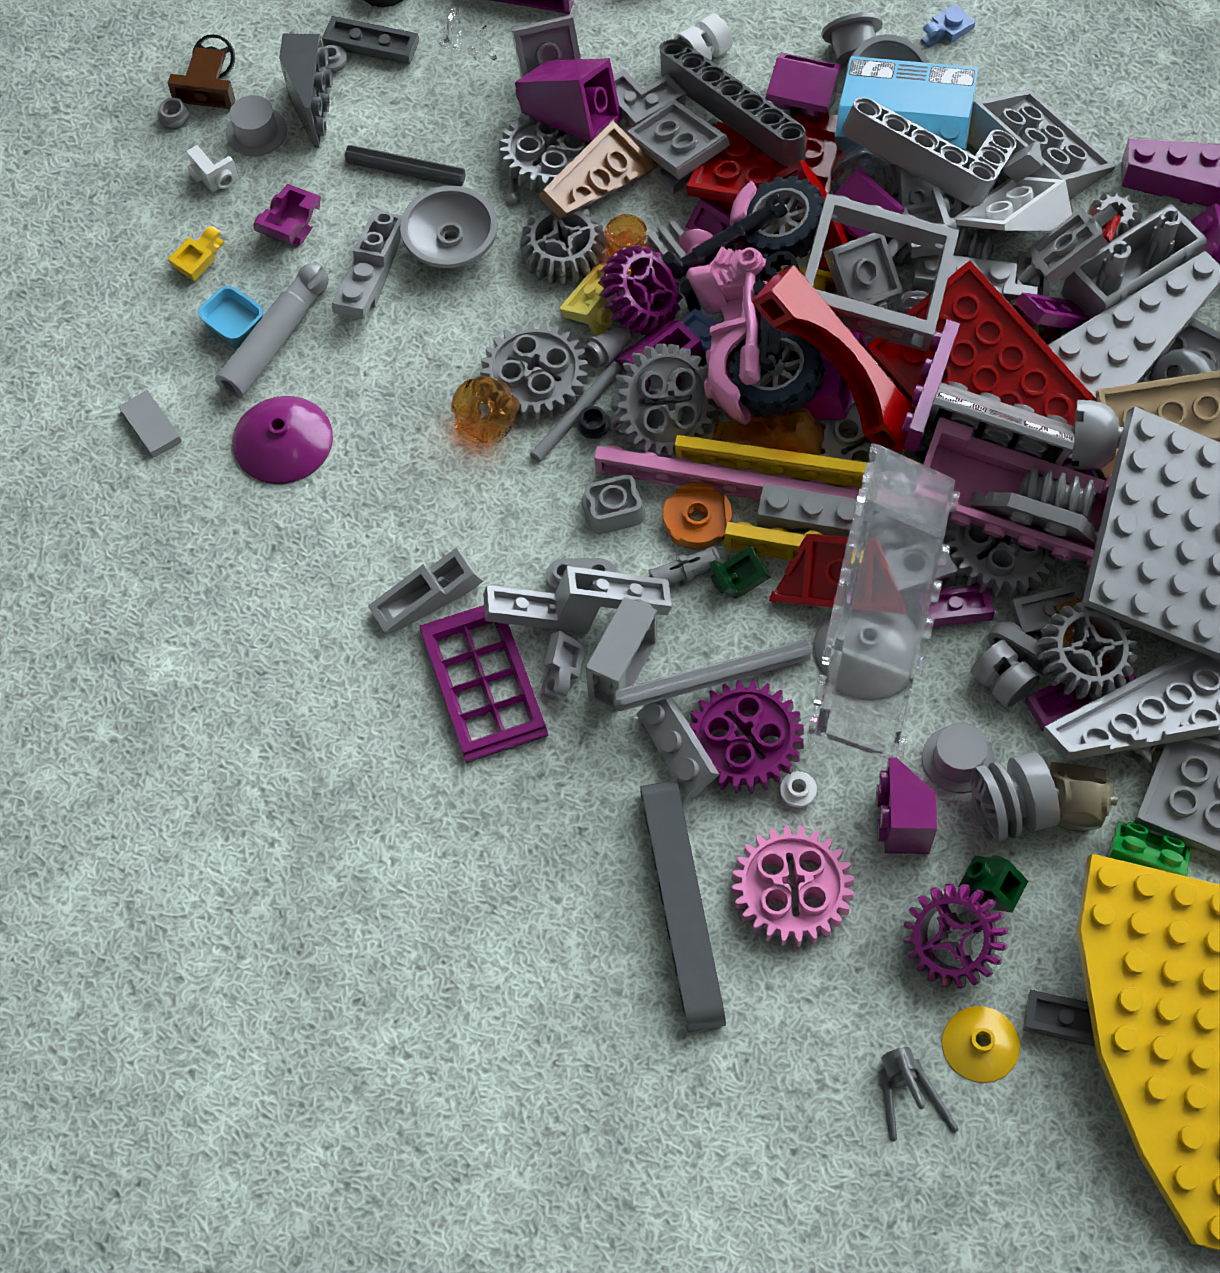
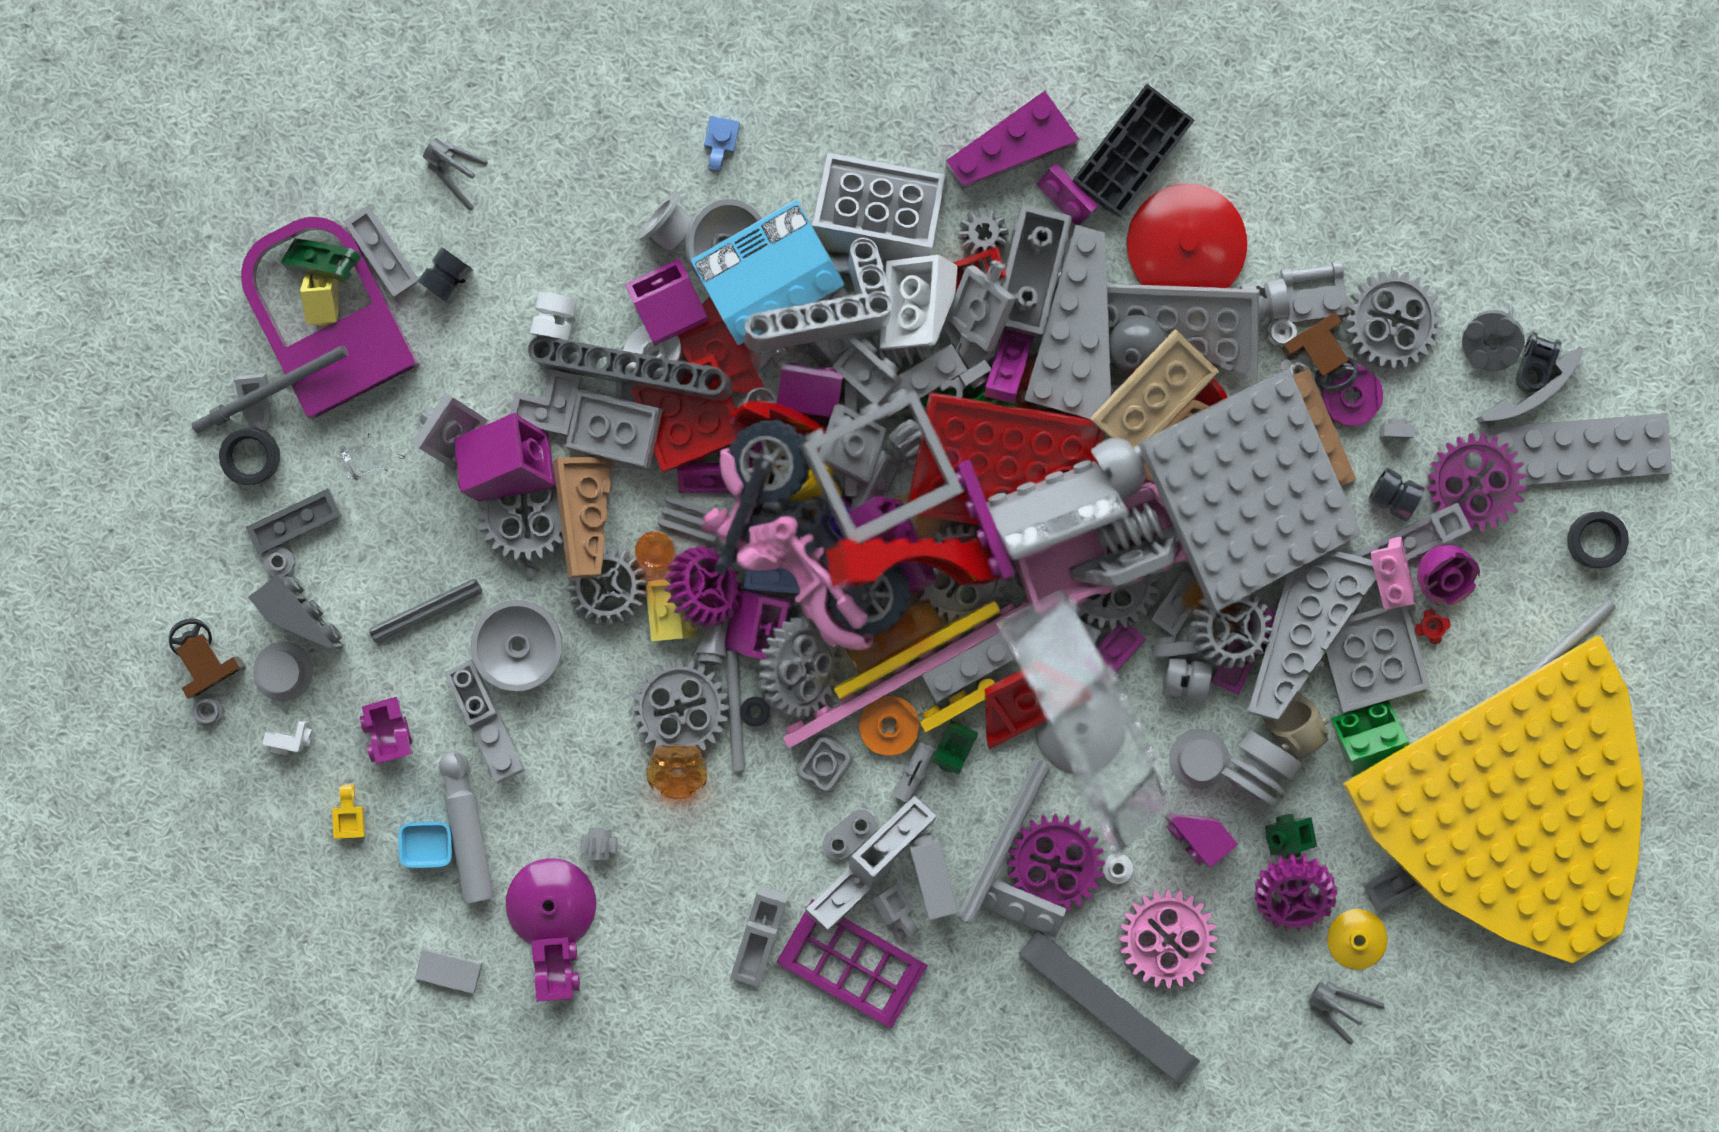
camera: 45 degrees left, 25 degrees up
(235, 479) = (555, 969): none -> magenta cylinder
(366, 417) = (599, 844): none -> light grey gear
(1024, 162) = (893, 254): light grey slope -> none

